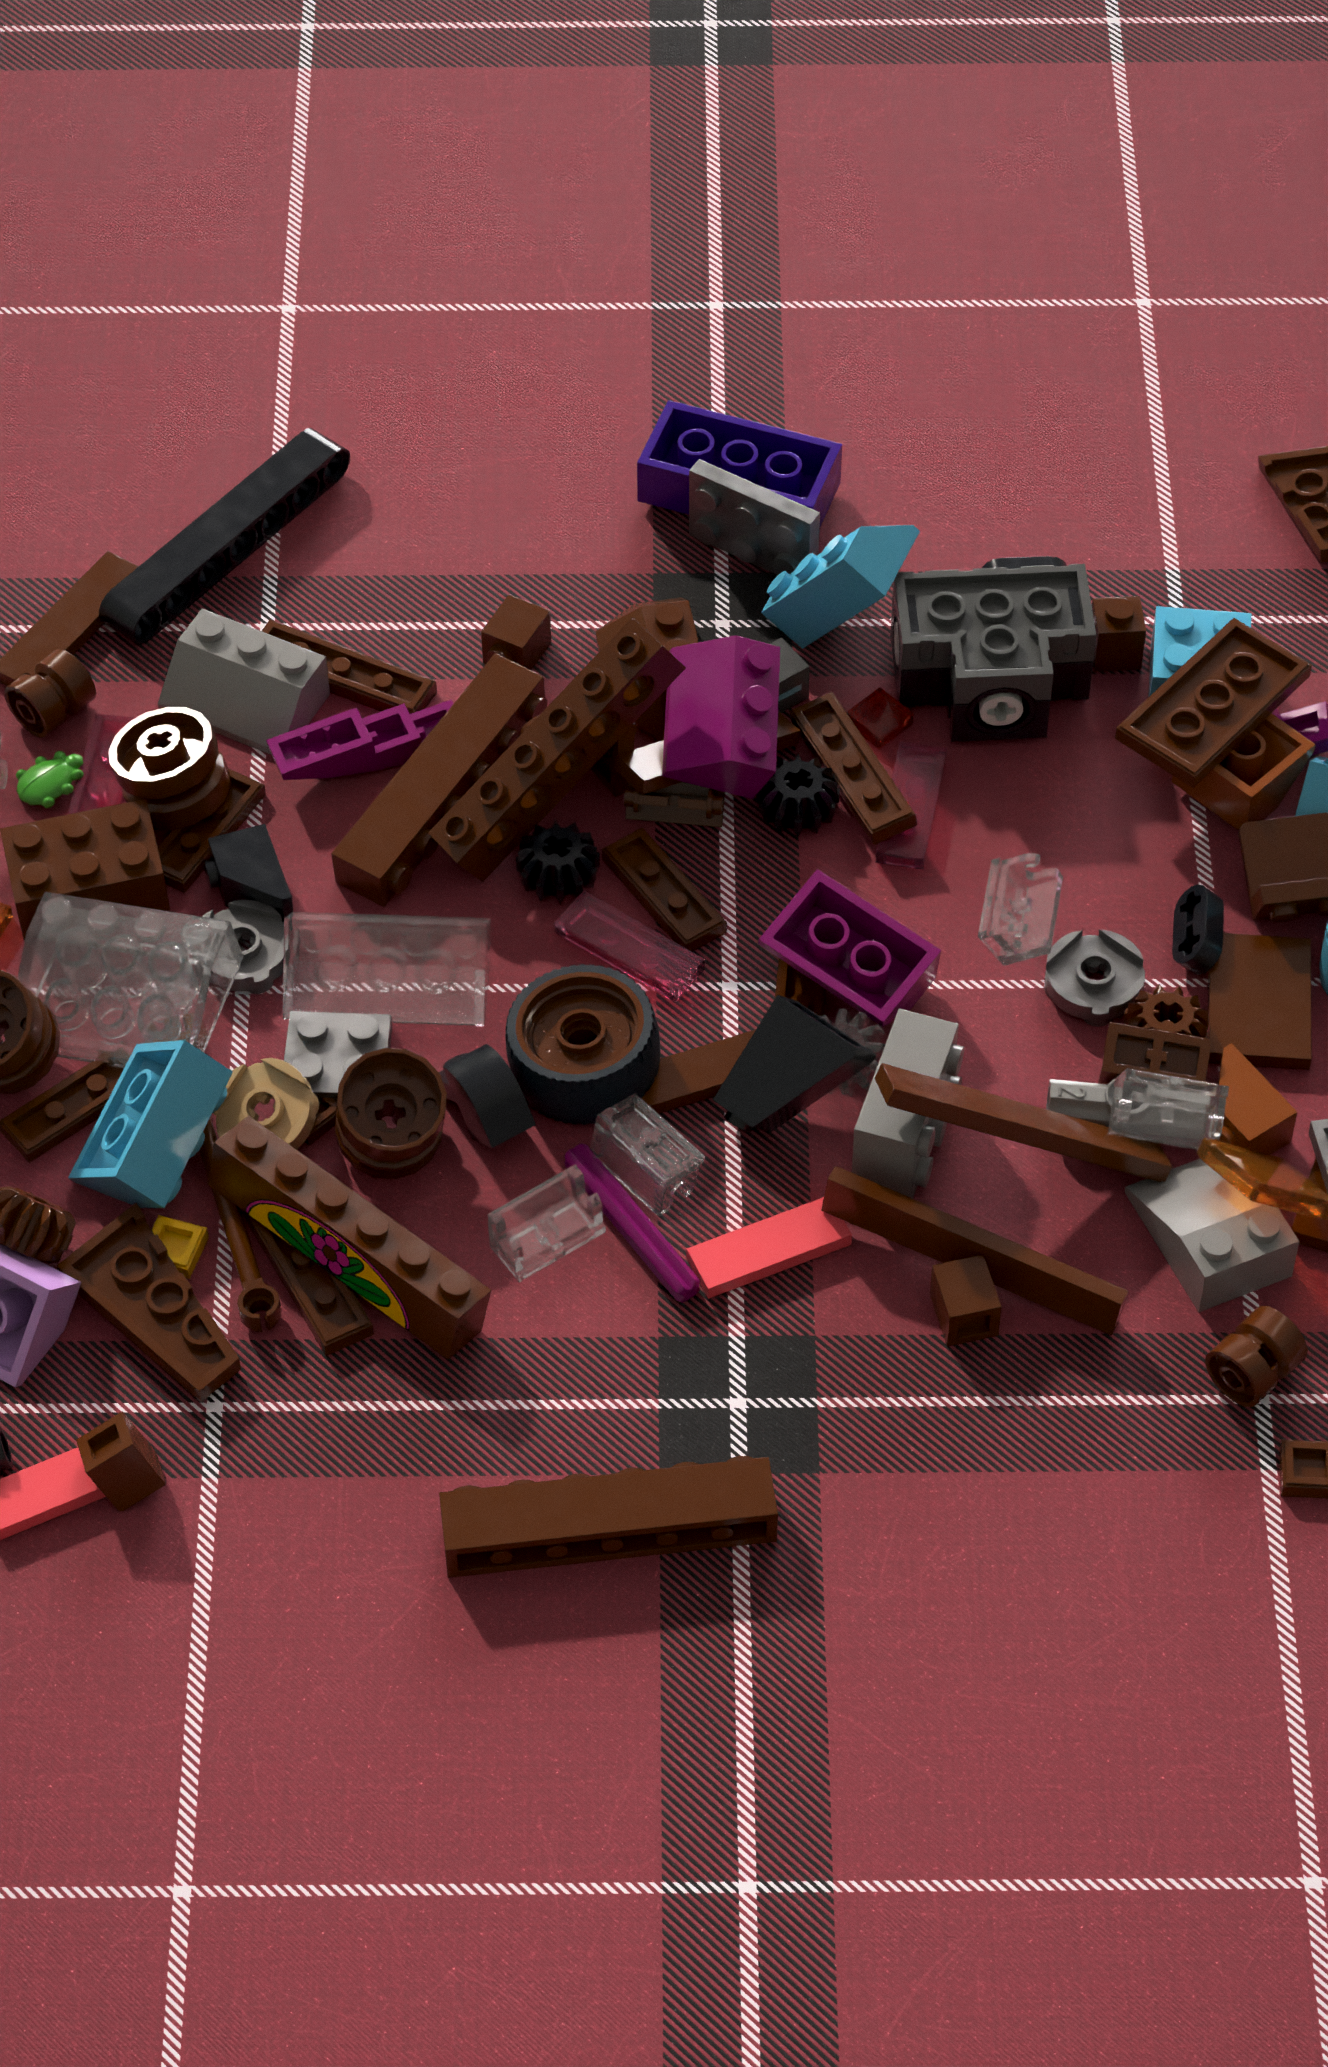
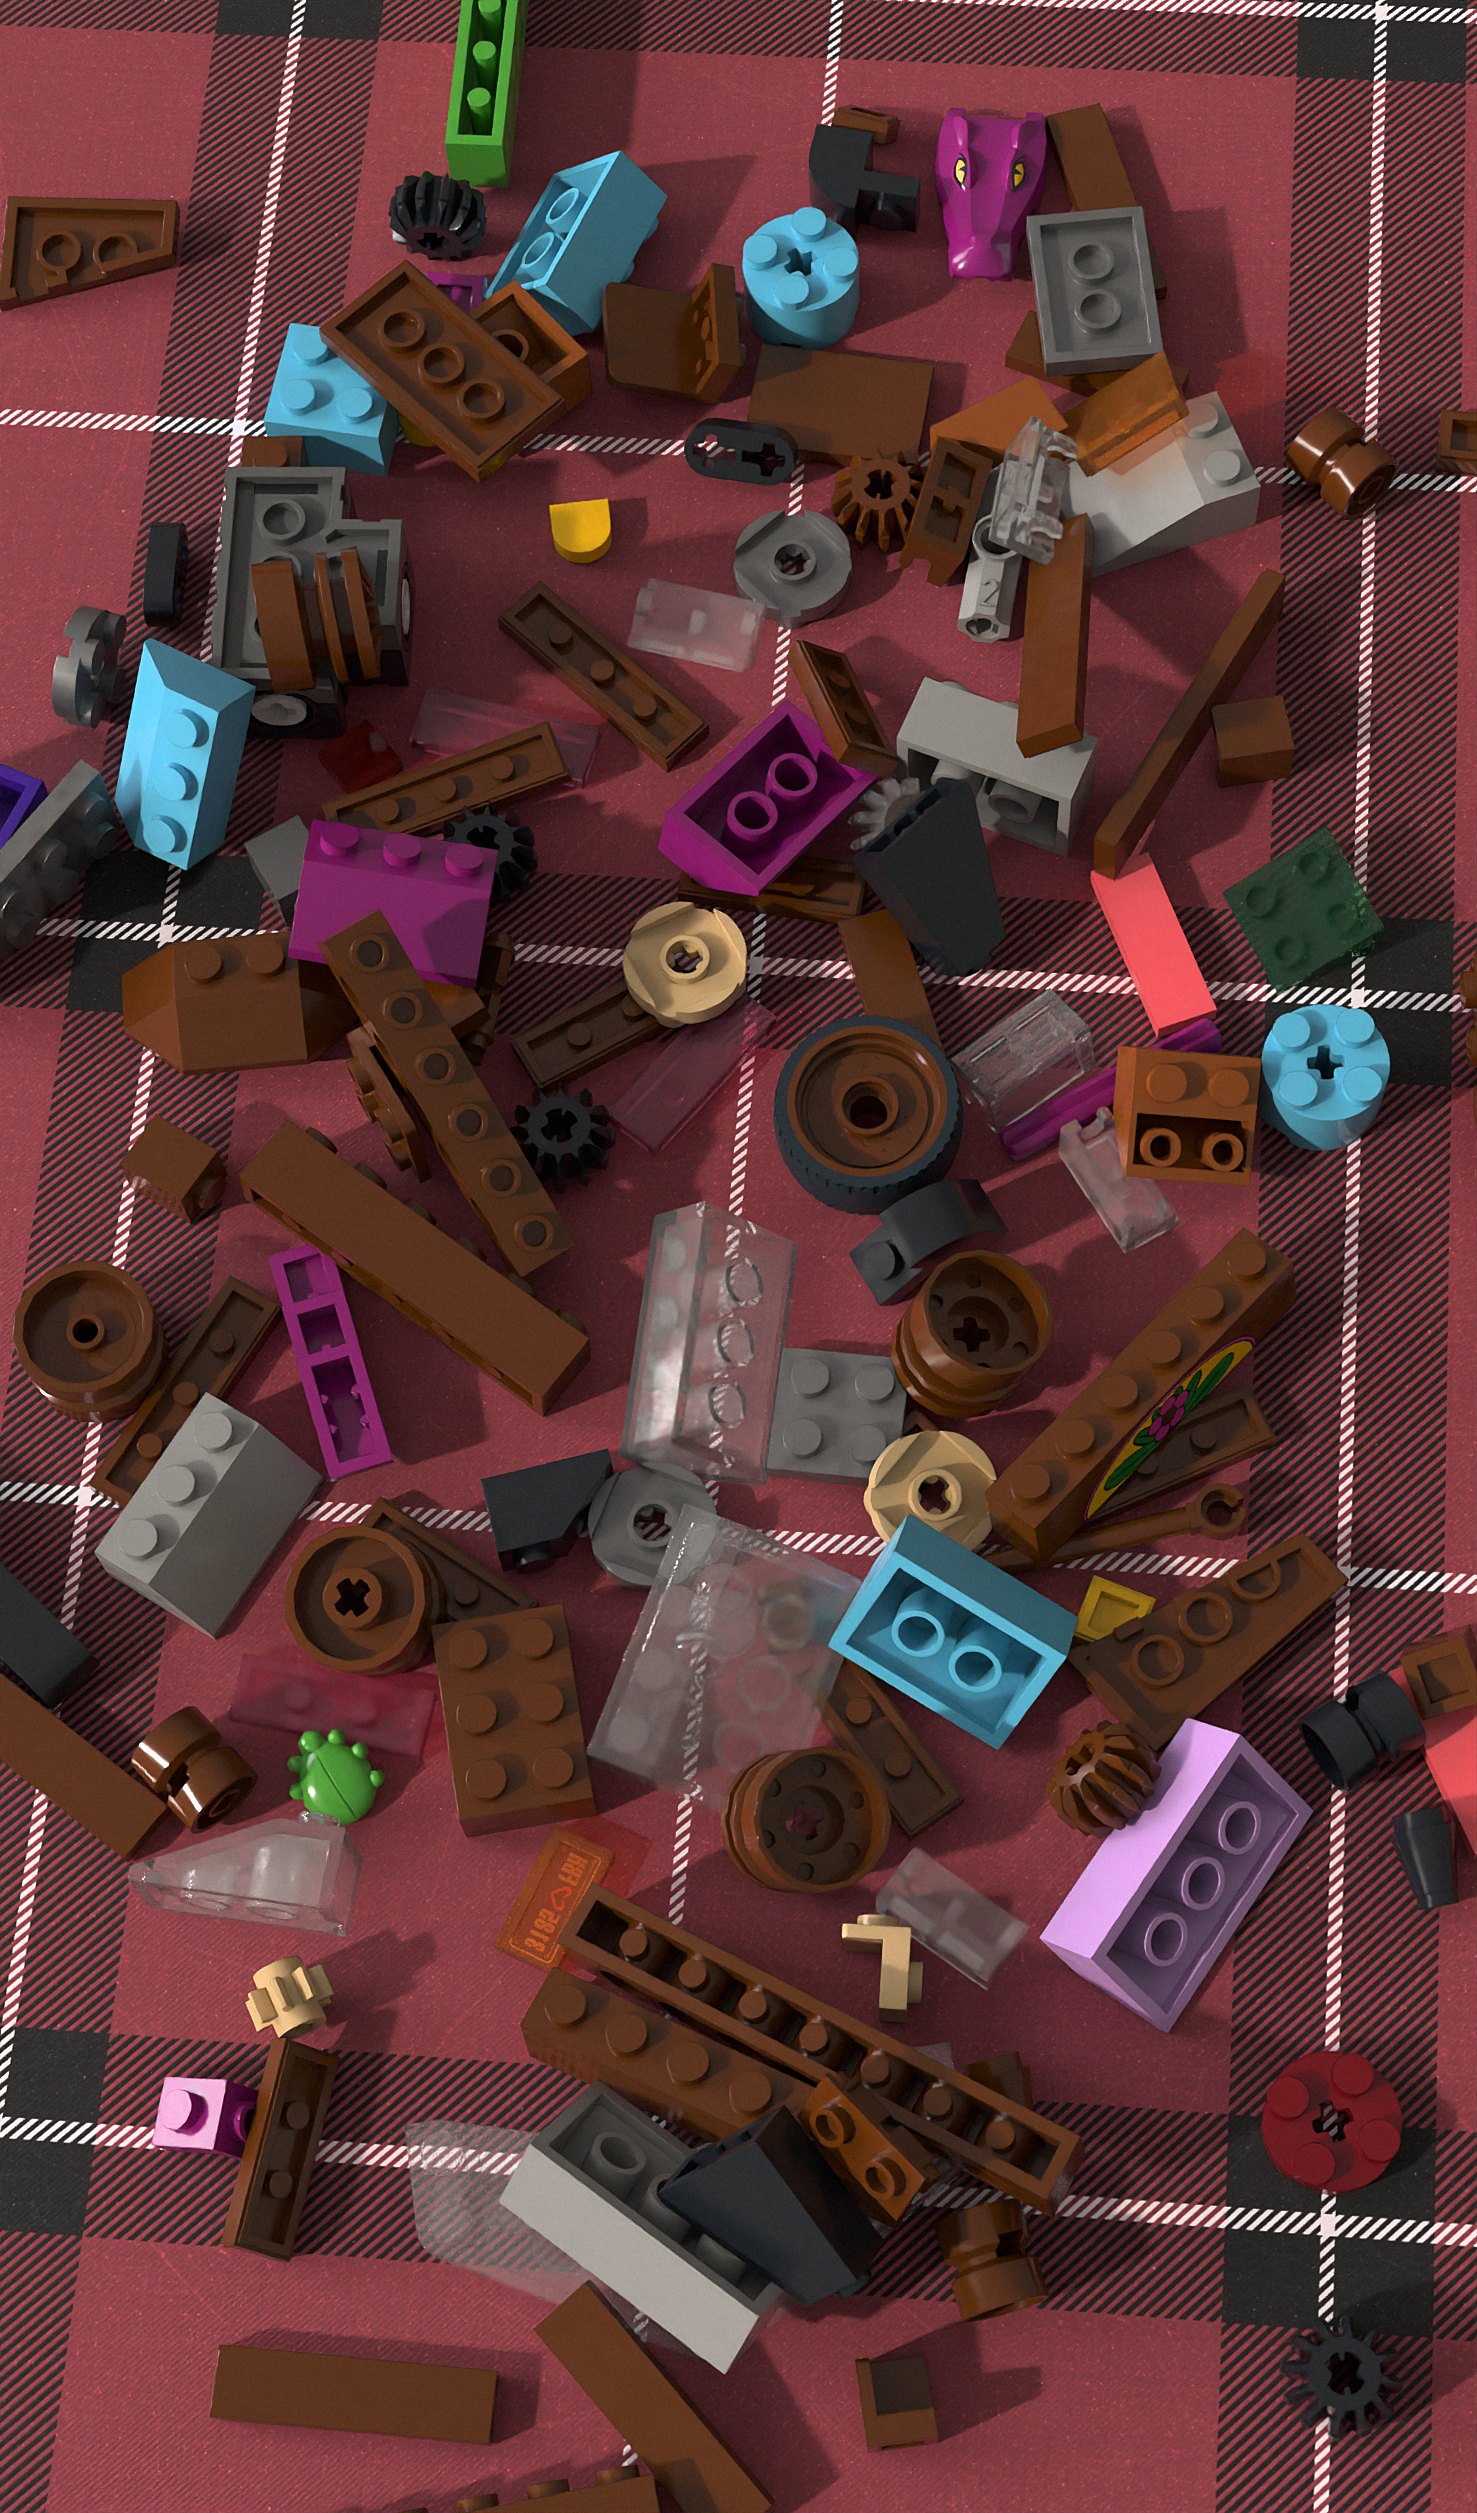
camera: 80 degrees left, 15 degrees up
(66, 1398) = (1368, 1726): none -> black wheel
(371, 597) = (90, 1341): none -> reddish brown wheel
(601, 1256) = (1186, 1114): none -> dark orange slope
(645, 1358) = (1330, 1044): none -> medium azure brick
(709, 943) = (692, 996): none -> tan plate
(807, 1349) = (1304, 911): none -> clear green hinge
(927, 604) = (316, 620): none -> reddish brown wheel
(937, 513) = (90, 672): none -> flat silver plate
(950, 996) = (842, 708): none -> reddish brown tile
(965, 873) = (604, 676): none -> reddish brown tile
(1112, 838) = (581, 529): none -> yellow tile

